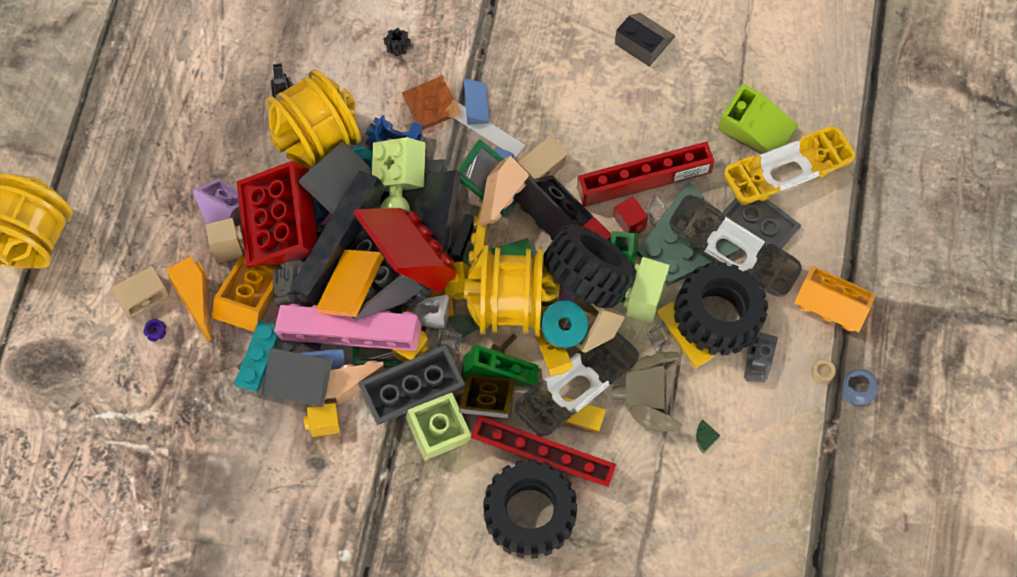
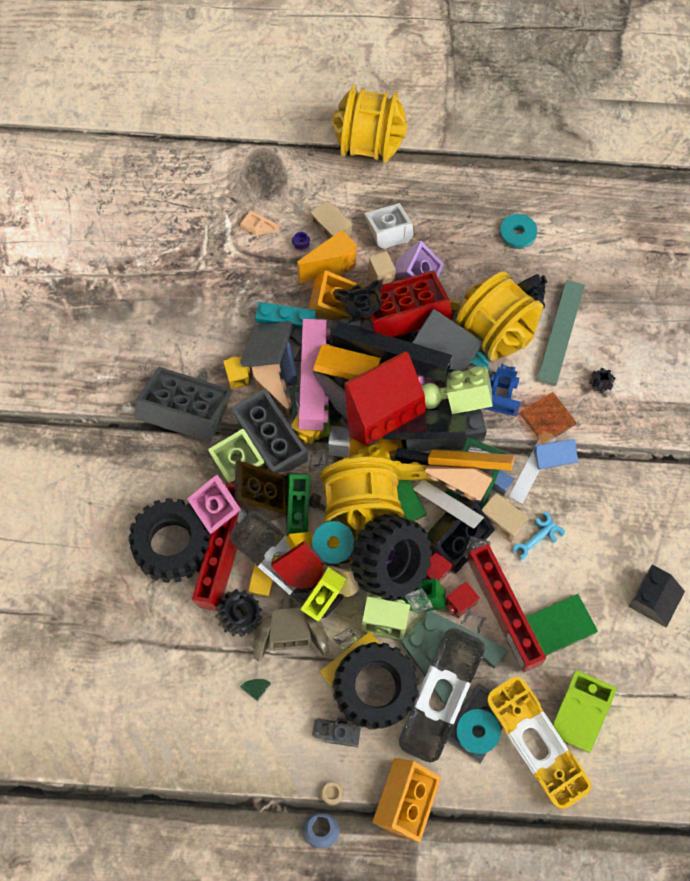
camera: 80 degrees right, 0 degrees up
(119, 378) = (258, 224): none -> light nougat tile
(155, 226) = (390, 226): none -> white slope
(188, 83) = (522, 222): none -> teal tile
(265, 261) = (361, 300): none -> black tile
(354, 484) = (182, 404): none -> dark grey slope
(356, 83) = (560, 333): none -> sand green tile
(483, 174) = (471, 459): none -> light orange tile
(503, 445) = (214, 504): none -> bright pink slope
(525, 209) = (448, 503): none -> white sticker
(560, 124) = (548, 527): none -> medium azure bar
(574, 193) = (475, 543): none -> clear slope
(586, 364) = (299, 566): none -> red tile
(622, 341) = (323, 594): none -> neon yellow brick
(624, 442) = (246, 605): none -> black gear
(637, 249) = (419, 601): none -> clear slope
(663, 126) = (562, 624): none -> green tile
(778, 210) = (484, 720): none -> teal tile

